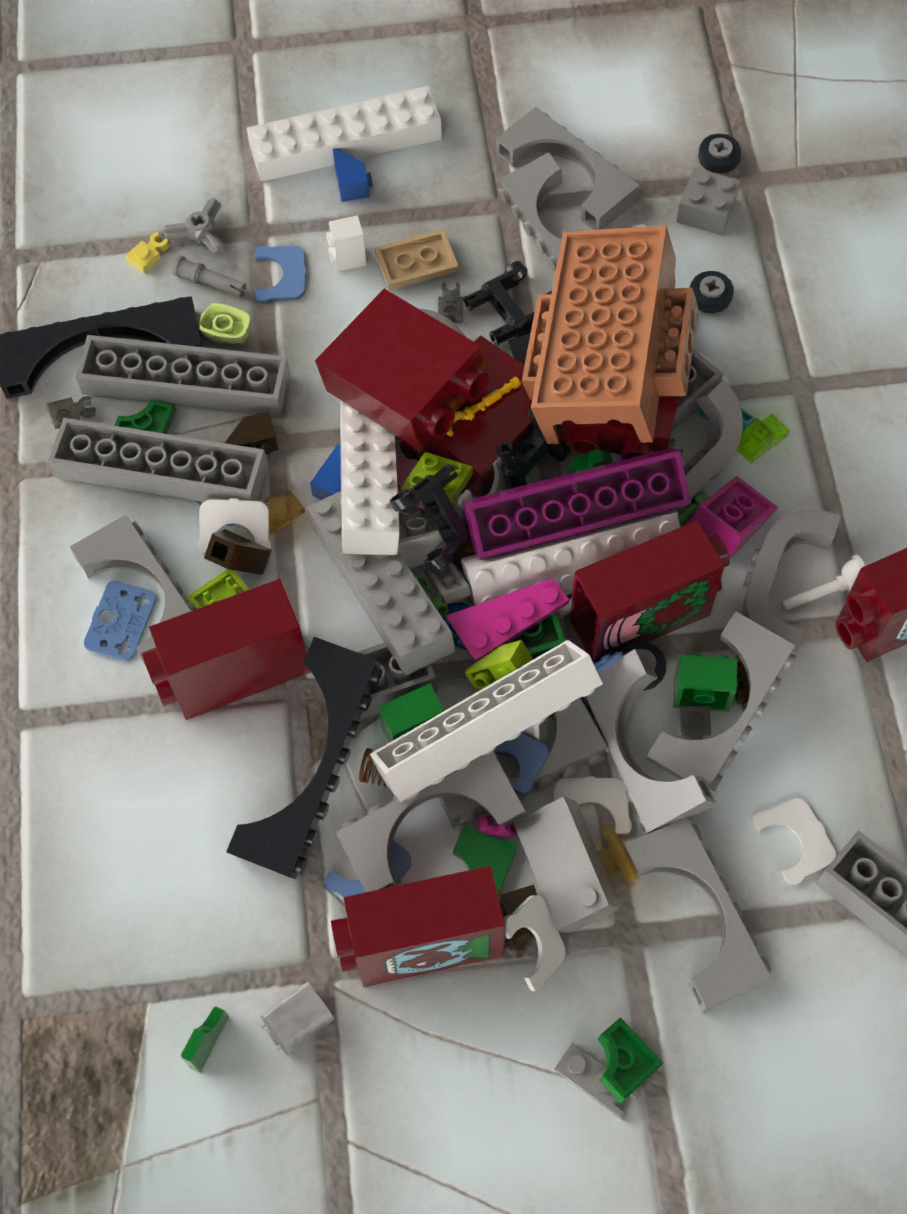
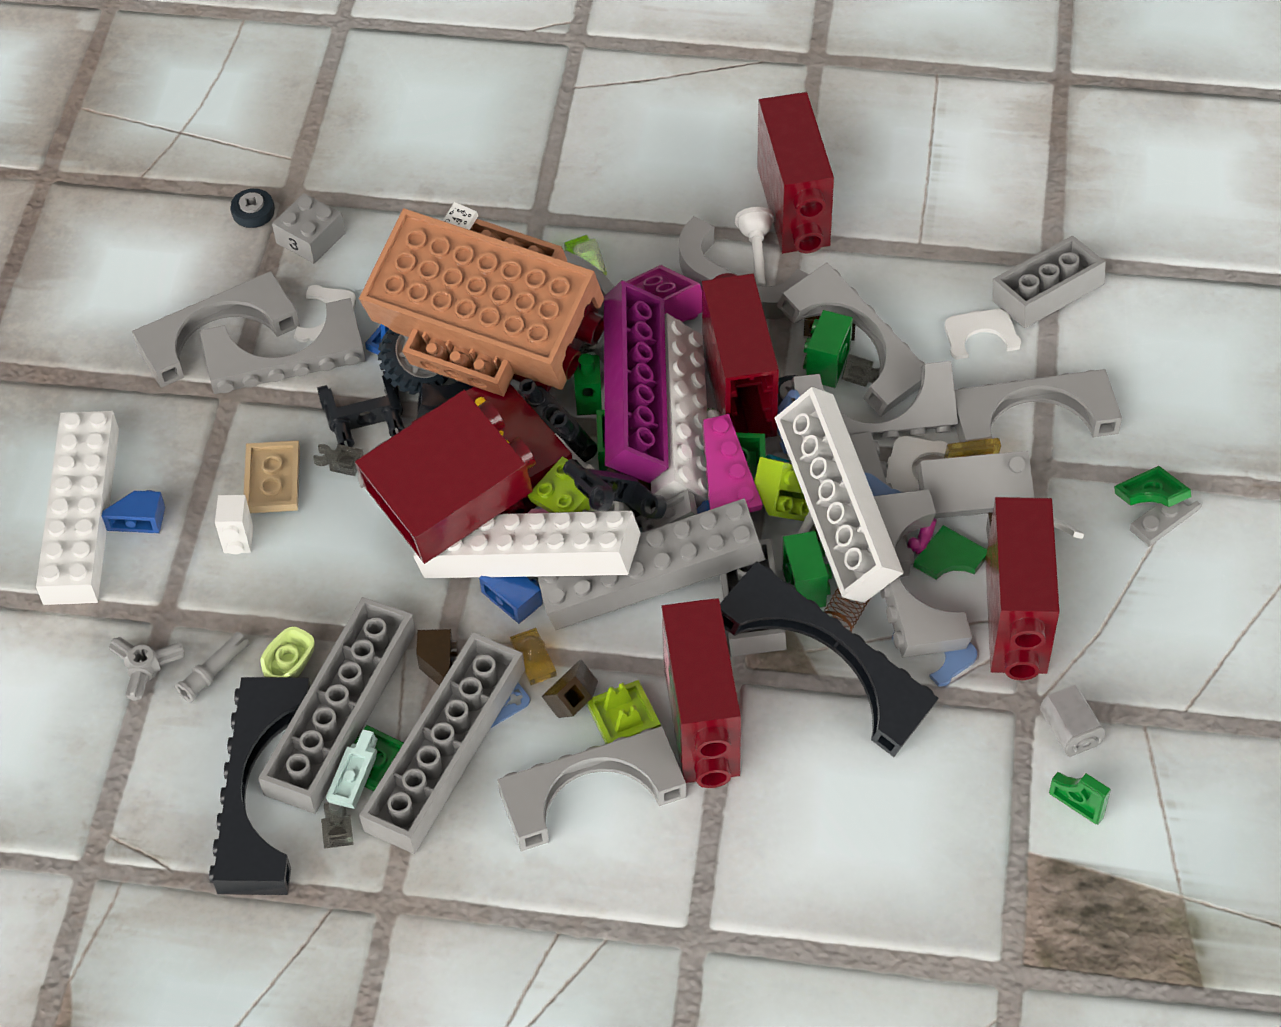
camera: 75 degrees left, 10 degrees down
(118, 405) = (353, 771): none -> light aqua hinge
(126, 622) = (615, 809): medium blue axle -> none
(147, 255) = (150, 725): light yellow plate -> none
(220, 512) = (525, 691): white piece -> none
(294, 273) = (217, 590): medium blue piece -> none
(682, 281) = (461, 216): none -> white tile

